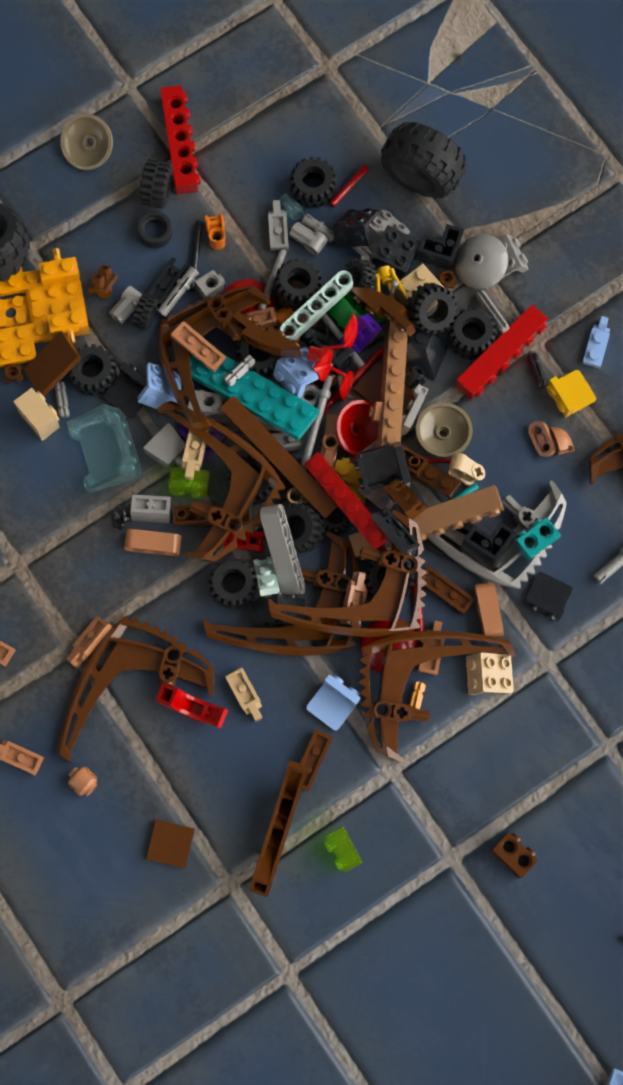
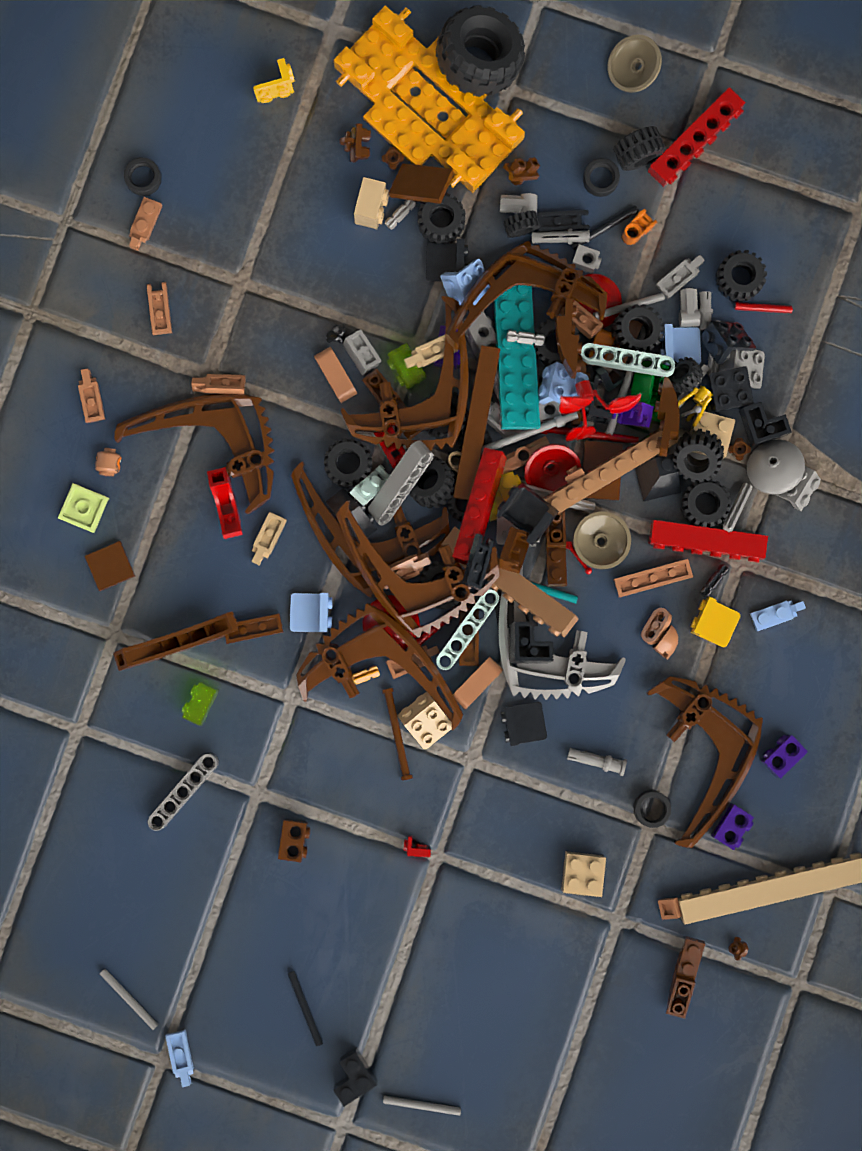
camera: 55 degrees right, 10 degrees up
(104, 830) = (83, 508): none -> yellowish green plate
(106, 447) = (385, 280): clear light blue windscreen -> none
(166, 447) = (421, 326): light grey torso -> none
(198, 346) = (520, 289): nougat plate -> none
(292, 208) = (706, 275): clear light blue cone -> none
(331, 261) = (681, 343): none -> light blue bracket
(406, 930) = (176, 798): none -> light grey beam
(413, 407) = (602, 502): light grey hinge -> none
(414, 377) = (630, 483): black gear -> none
(423, 160) = (825, 354): black tyre -> none
(441, 594) = (465, 639): none -> light aqua beam
(465, 469) = (581, 581): tan piece -> none
(484, 705) = (397, 734): none -> reddish brown bar
(501, 414) = (653, 578): none -> nougat plate
(539, 541) = (561, 685): teal brick -> none
(595, 755) = (419, 850): none -> red bracket

